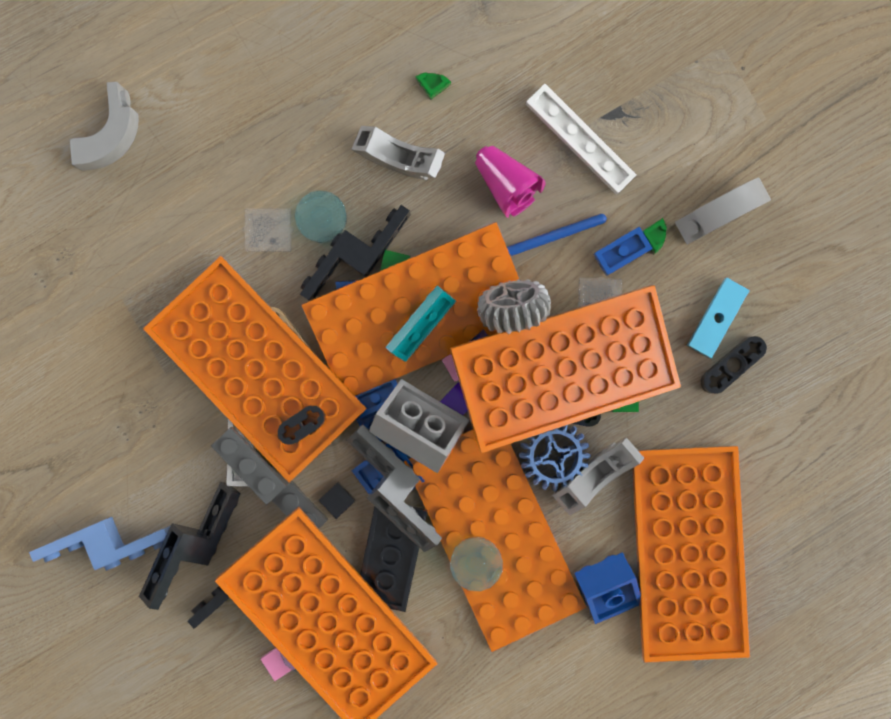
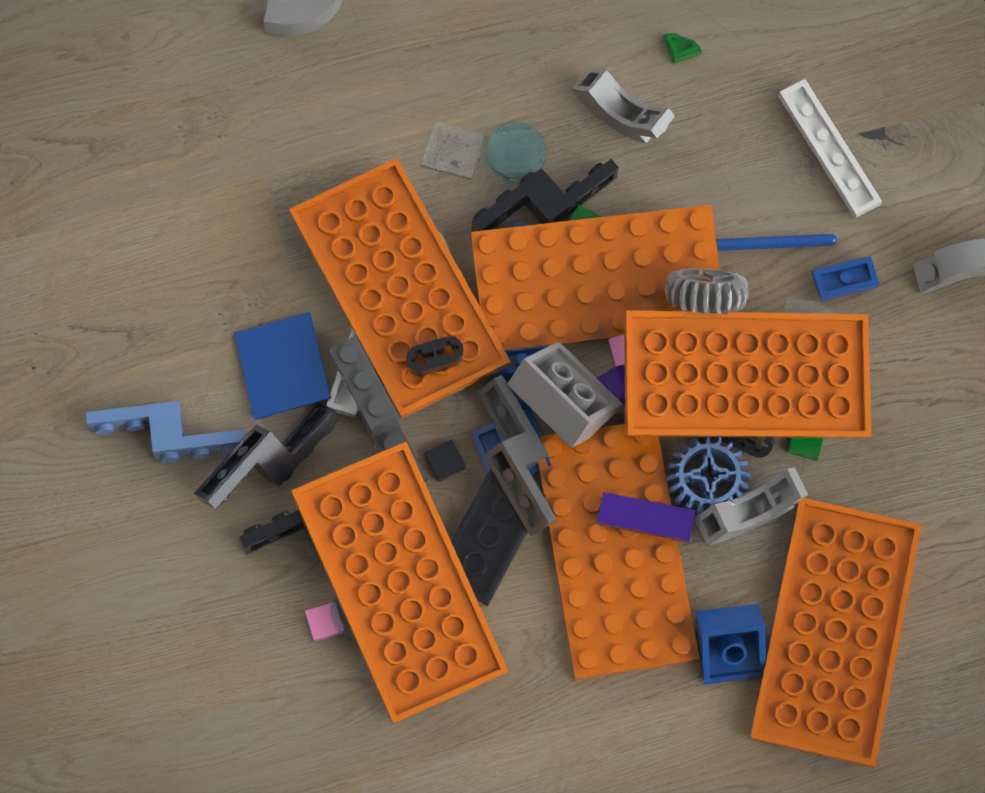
camera: 15 degrees right, 15 degrees down
(181, 459) = (282, 366): none -> blue piece
(421, 323) = (598, 286): teal plate -> none
(476, 564) = (586, 568): clear light blue tile -> none
(508, 180) = (737, 169): dark pink cone -> none
(513, 507) = (646, 517): none -> dark purple tile
(656, 235) = (888, 273): green tile -> none
(726, 305) = (946, 368): medium azure tile -> none
(752, 358) = (963, 436): black beam -> none

